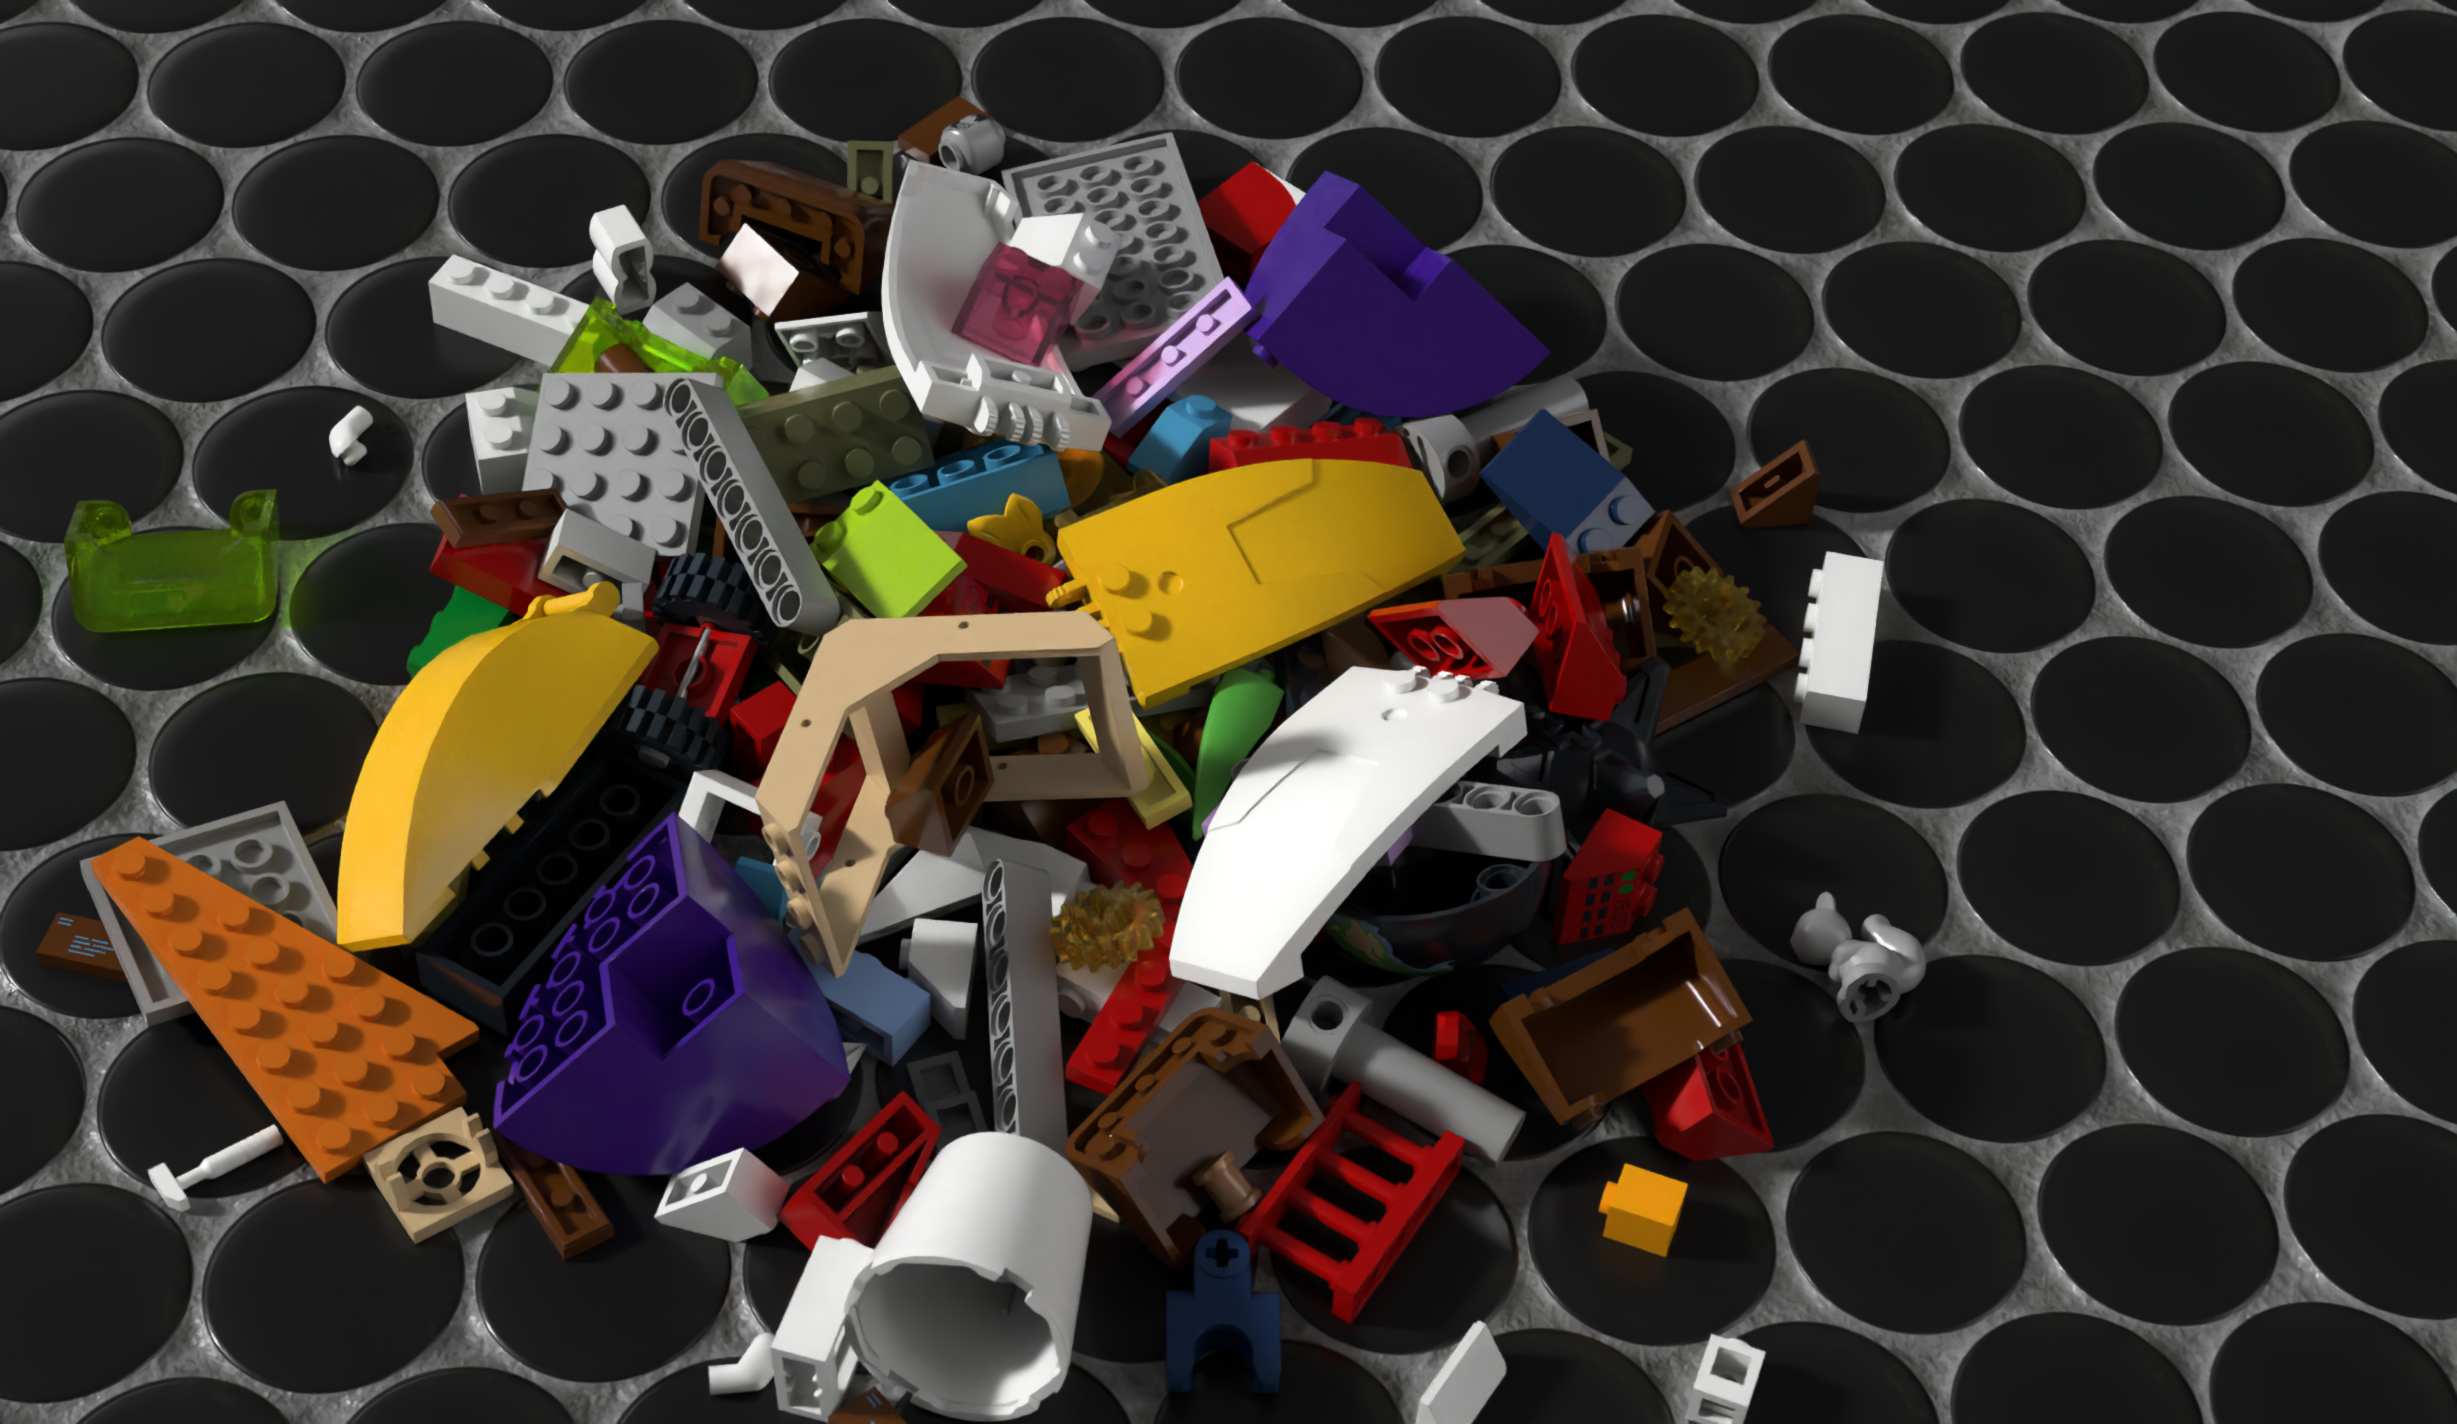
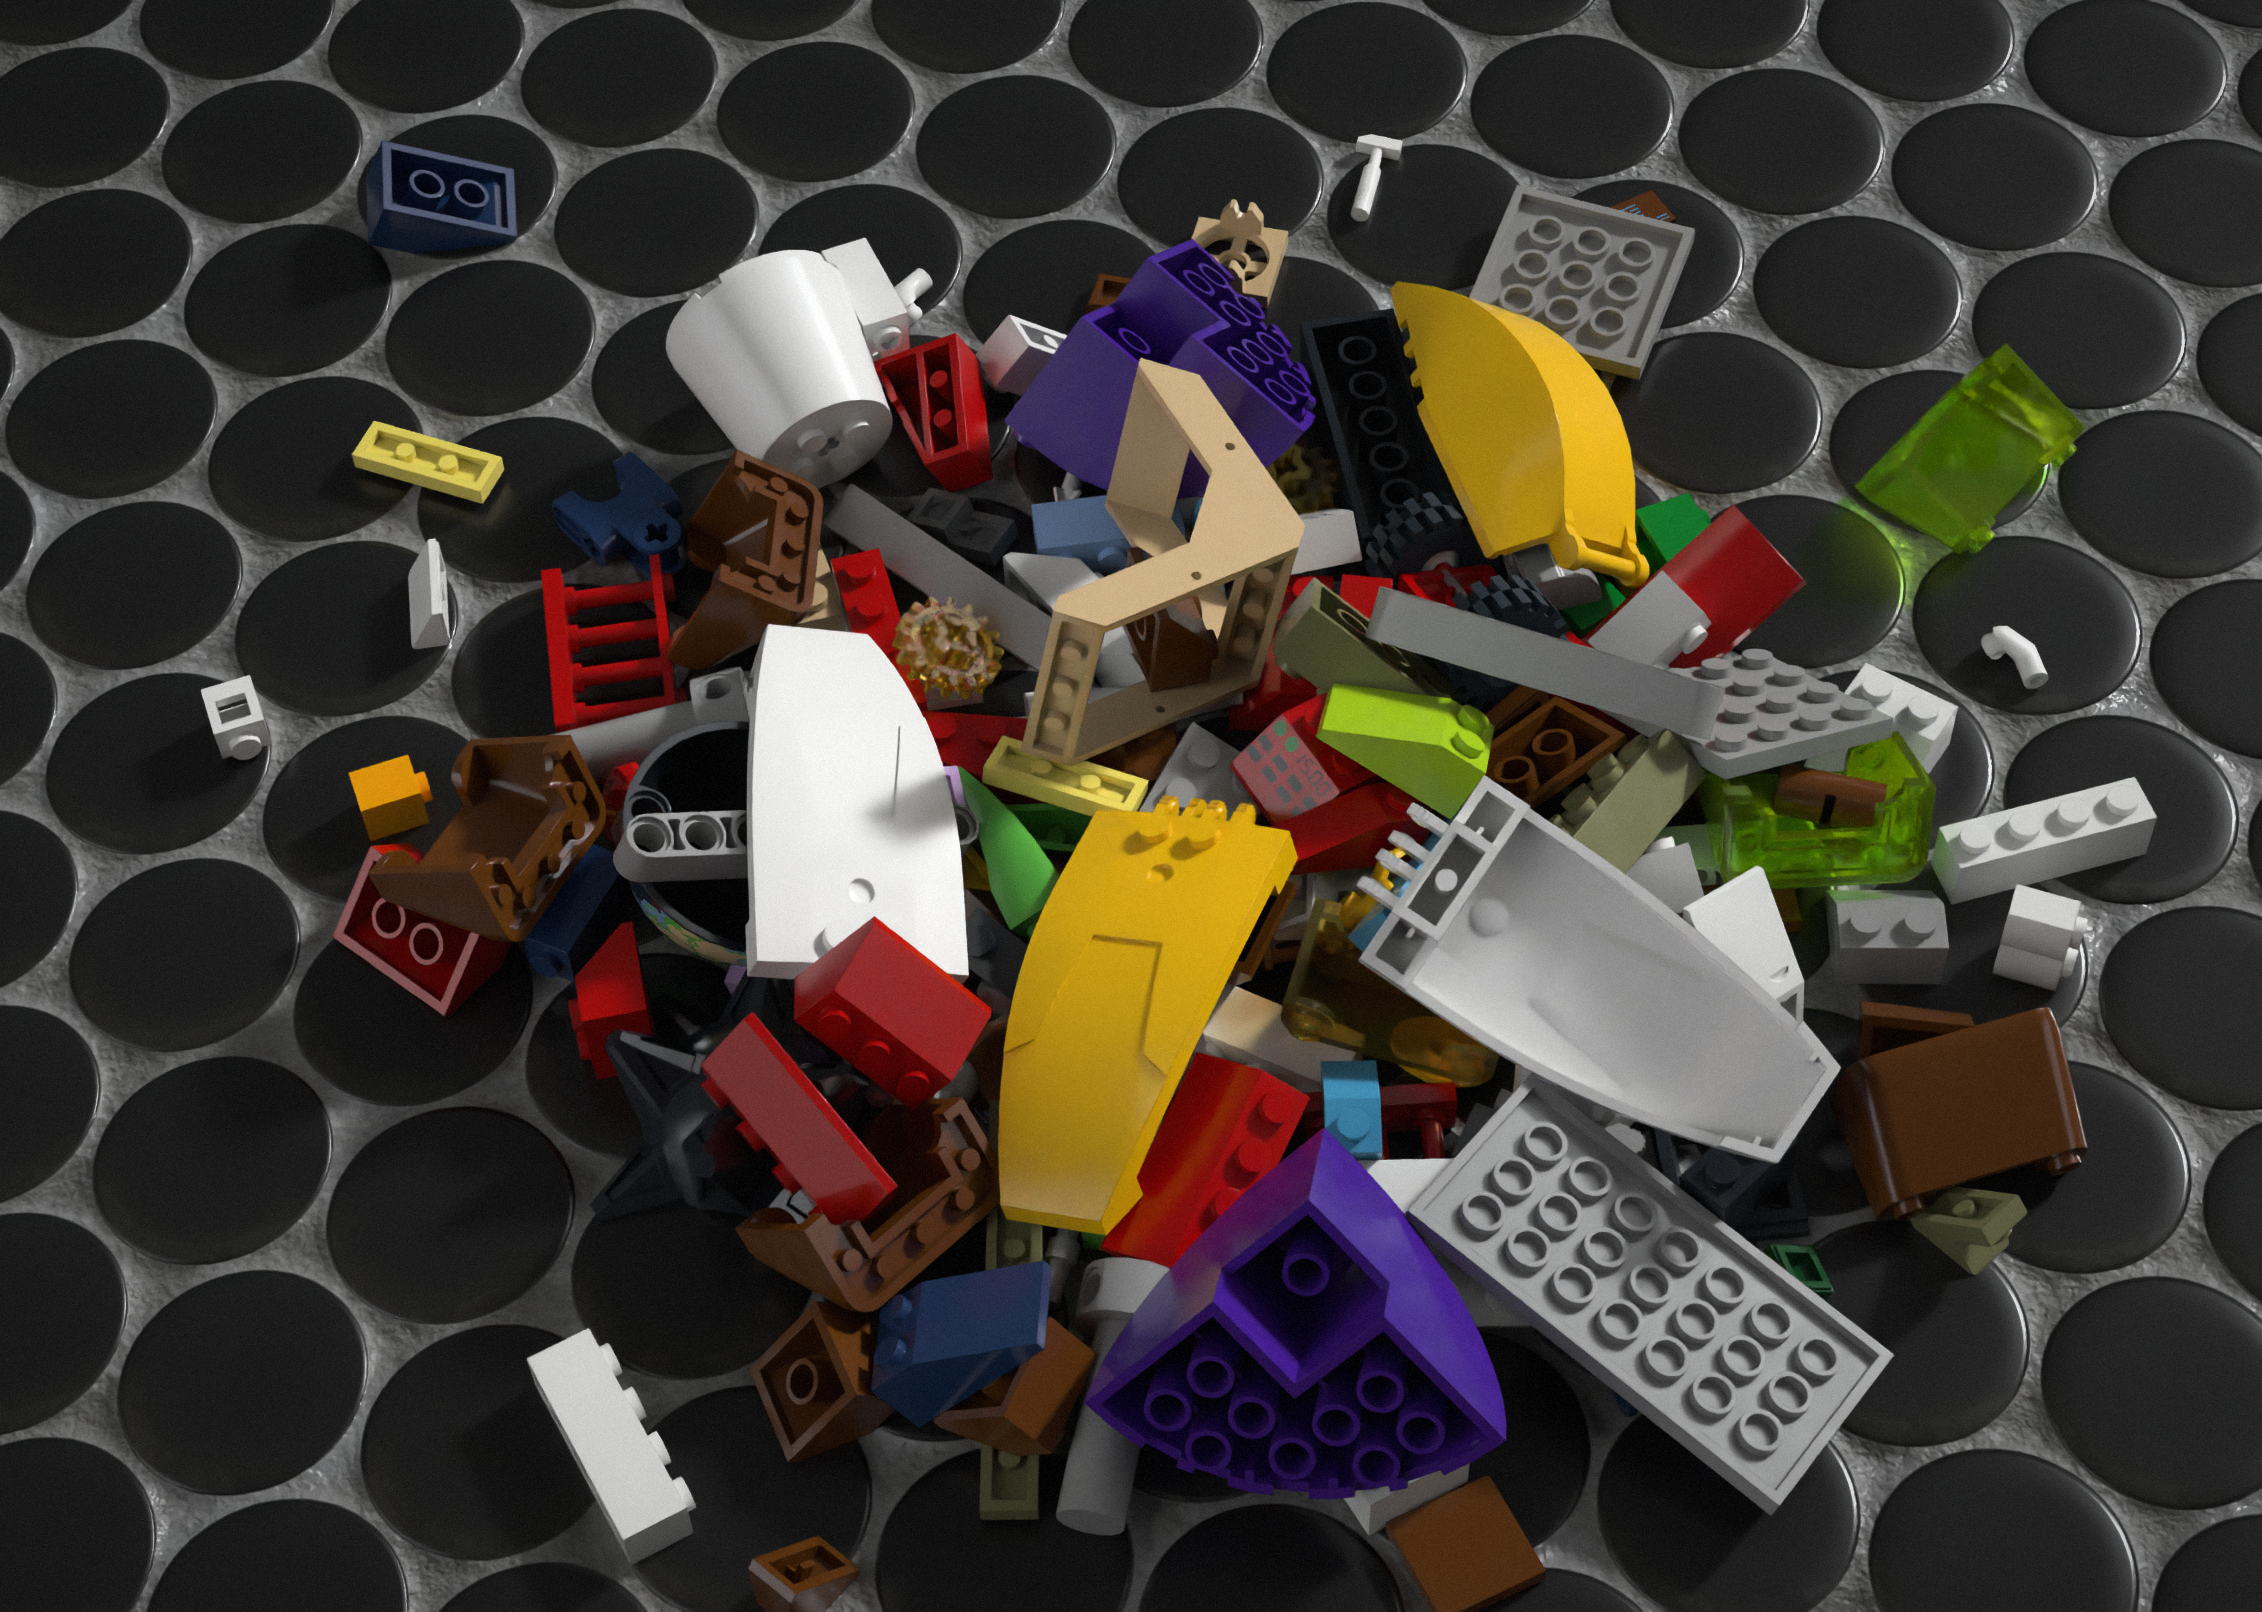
camera: 145 degrees right, 5 degrees up
(313, 1029) = (1352, 252): orange wing -> none
(499, 517) = (1744, 585): reddish brown tile -> none
(632, 610) = (1575, 612): light grey plate -> none
(924, 137) = (2013, 1375): reddish brown tile -> none
(972, 145) = (1950, 1353): light grey head -> none
(1018, 306) = (1585, 1035): clear pink slope -> none
(1074, 244) = (1626, 1137): white slope -> none
(1176, 355) = (1423, 1145): lavender plate -> none
(1226, 1186) = (690, 588): medium nougat bush -> none
(1246, 216) = (1603, 1496): red panel -> none
(1710, 682) = (702, 1326): reddish brown tile -> none
(1714, 614) = (711, 1356): clear yellow gear -> none
(1870, 969) = (348, 1113): light grey animal -> none

